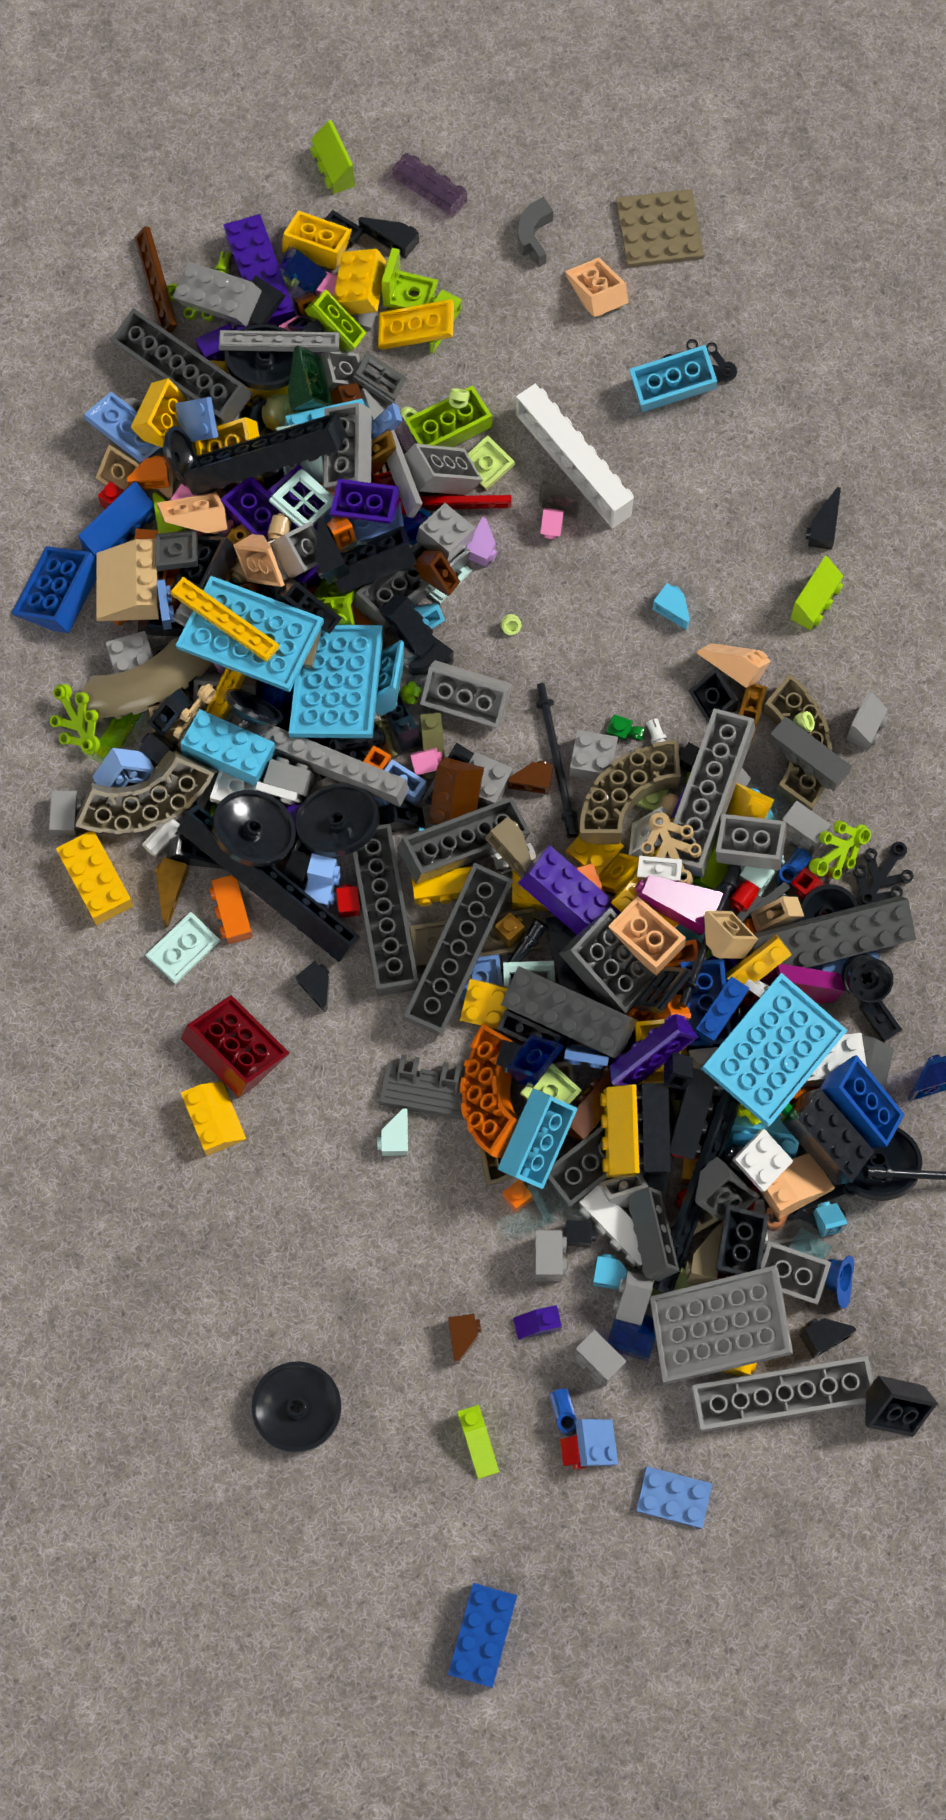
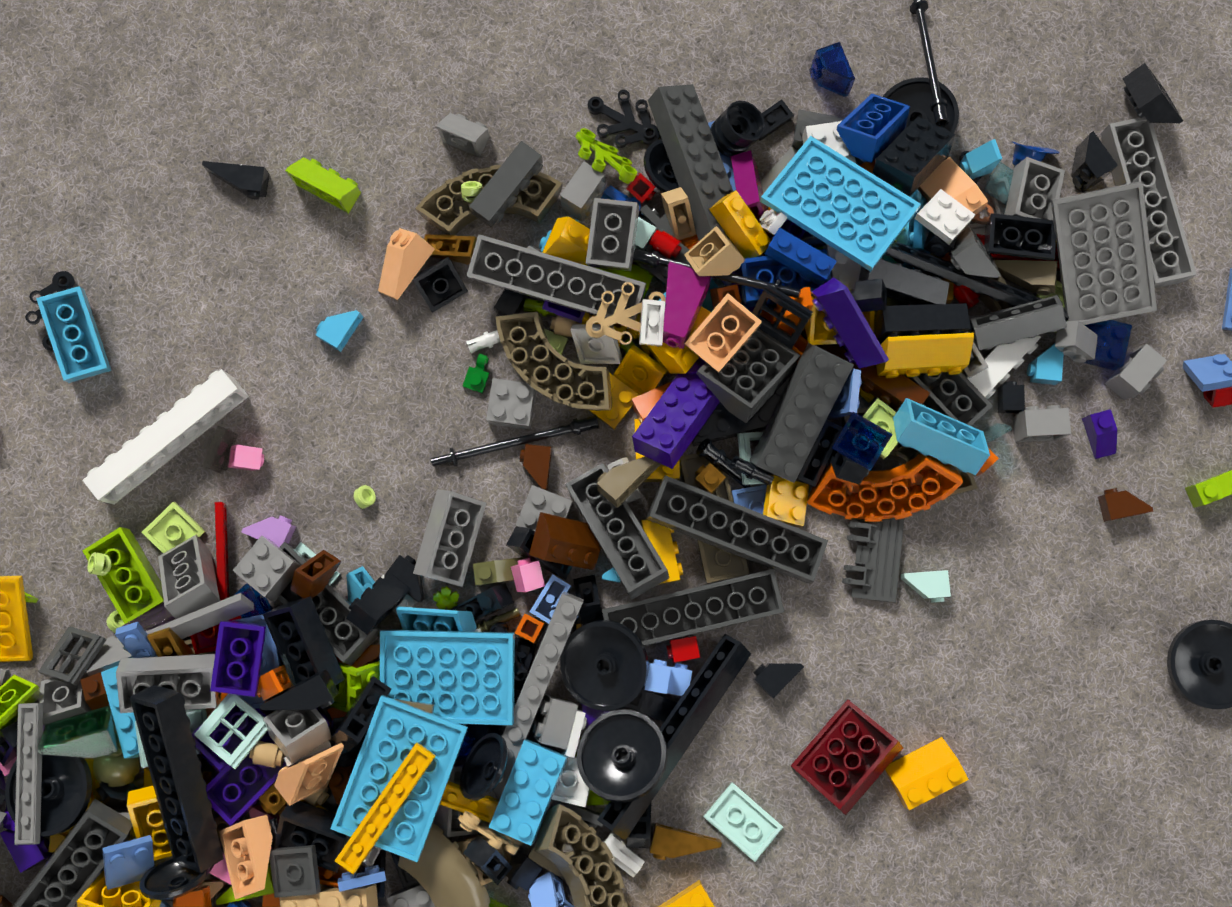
camera: 90 degrees left, 10 degrees up
(230, 909) = (701, 773): orange brick -> none
(518, 960) = (751, 470): none -> black pin
(563, 1410) = (1183, 405): blue piece -> none

